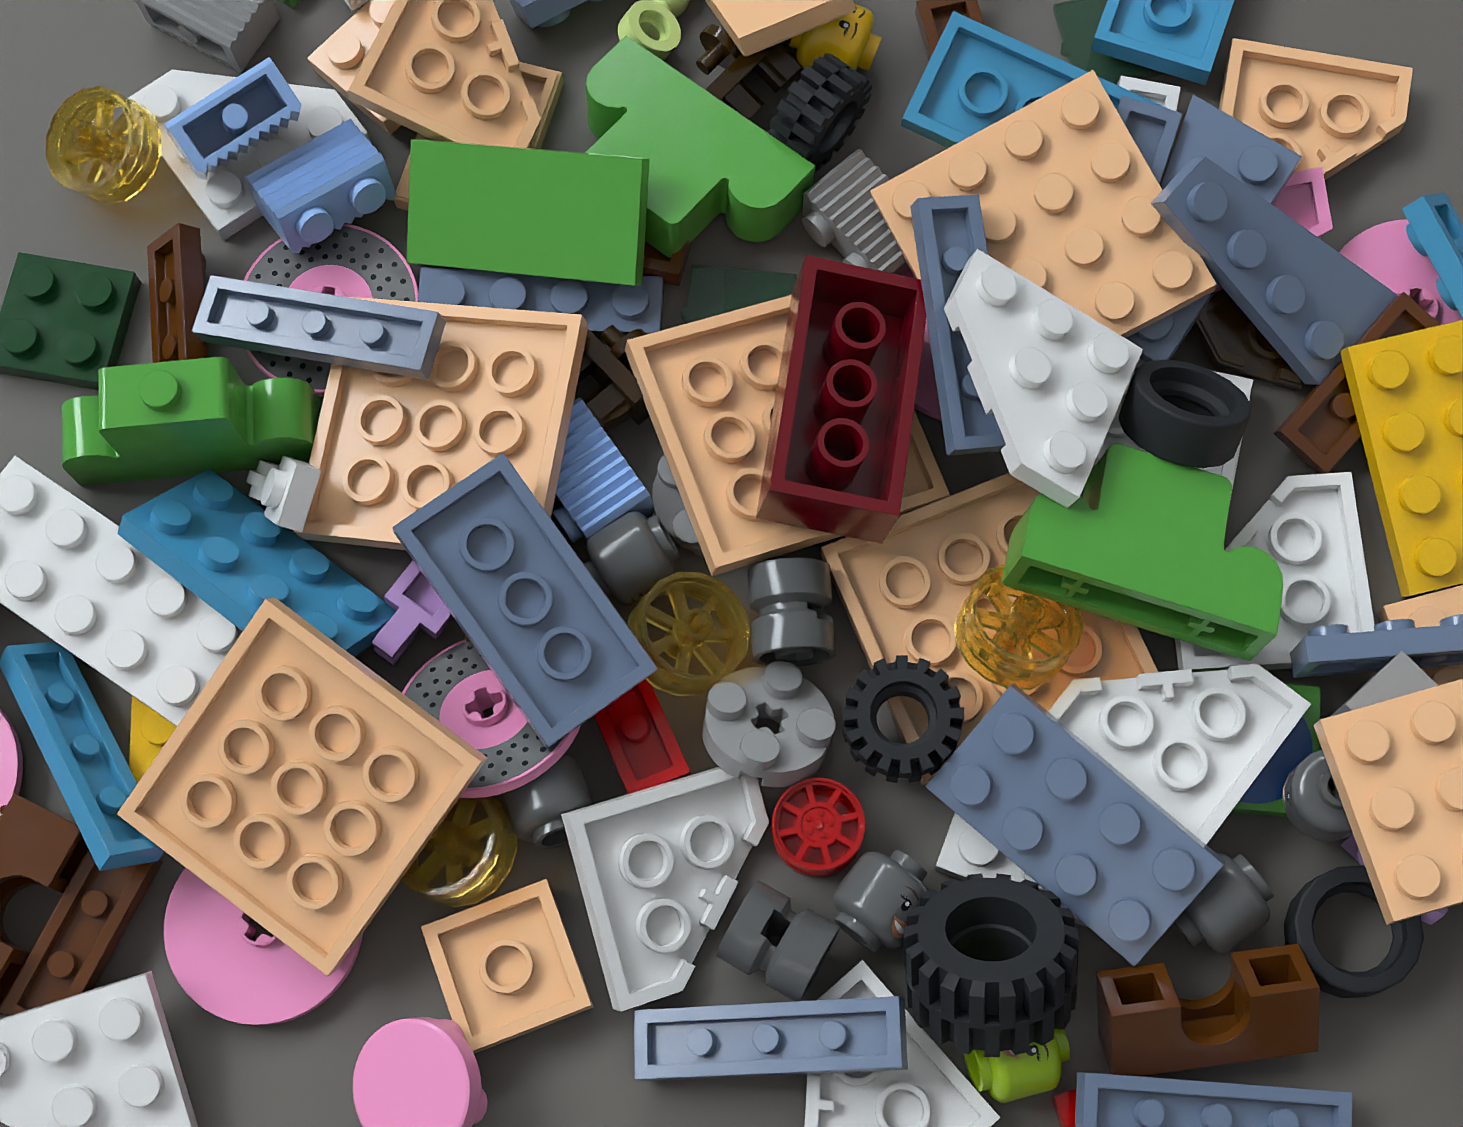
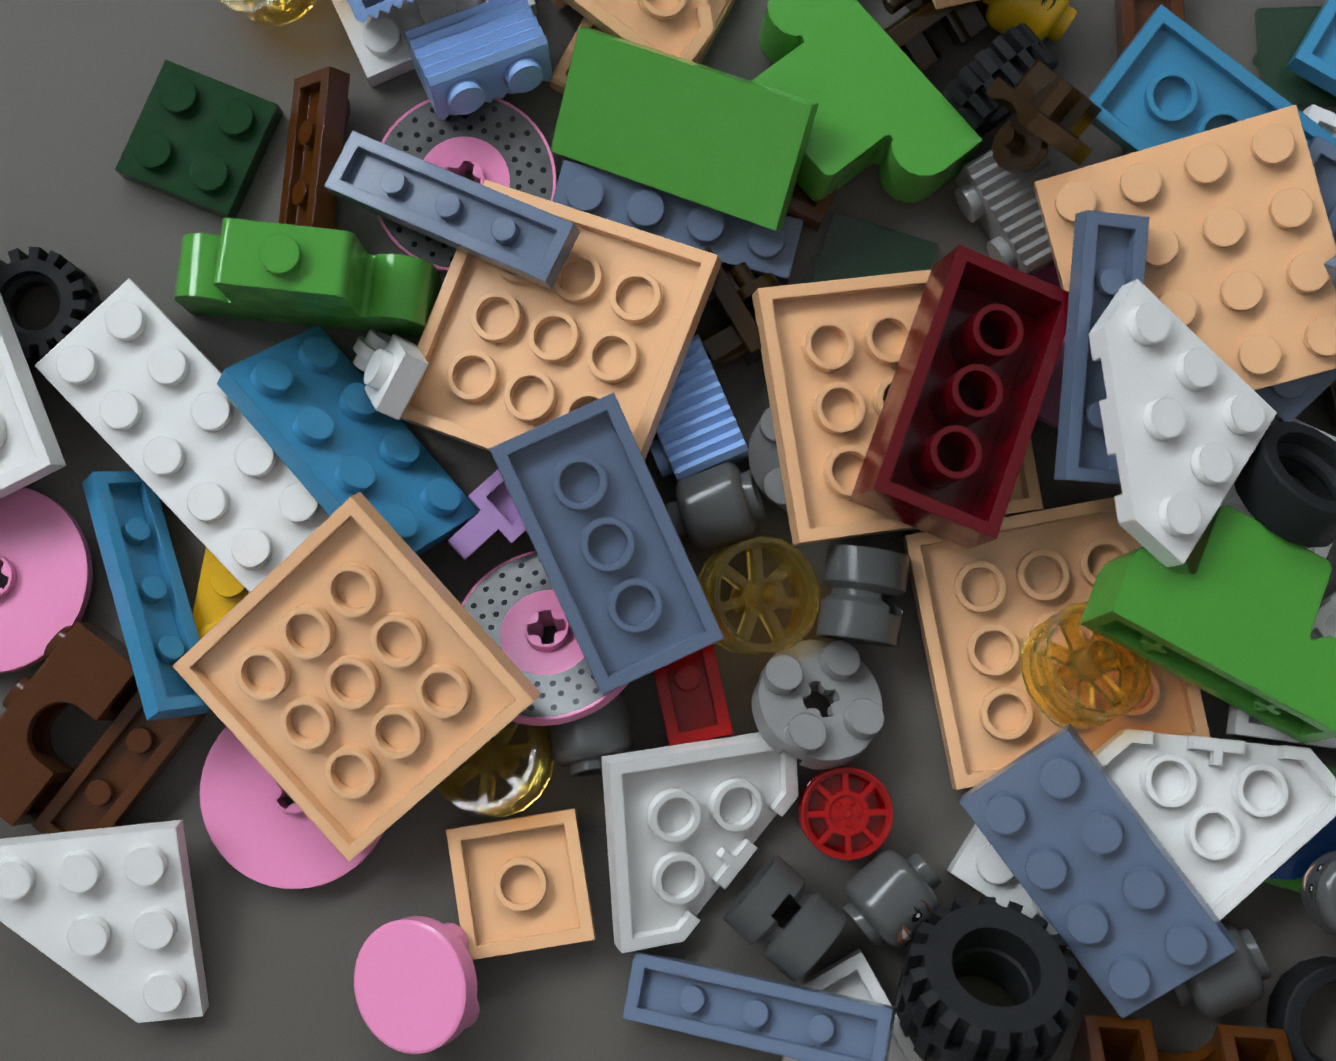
camera: 10 degrees right, 10 degrees up
(866, 127) = (1046, 114): none -> dark brown hips
(908, 680) = (990, 722): black tyre -> none

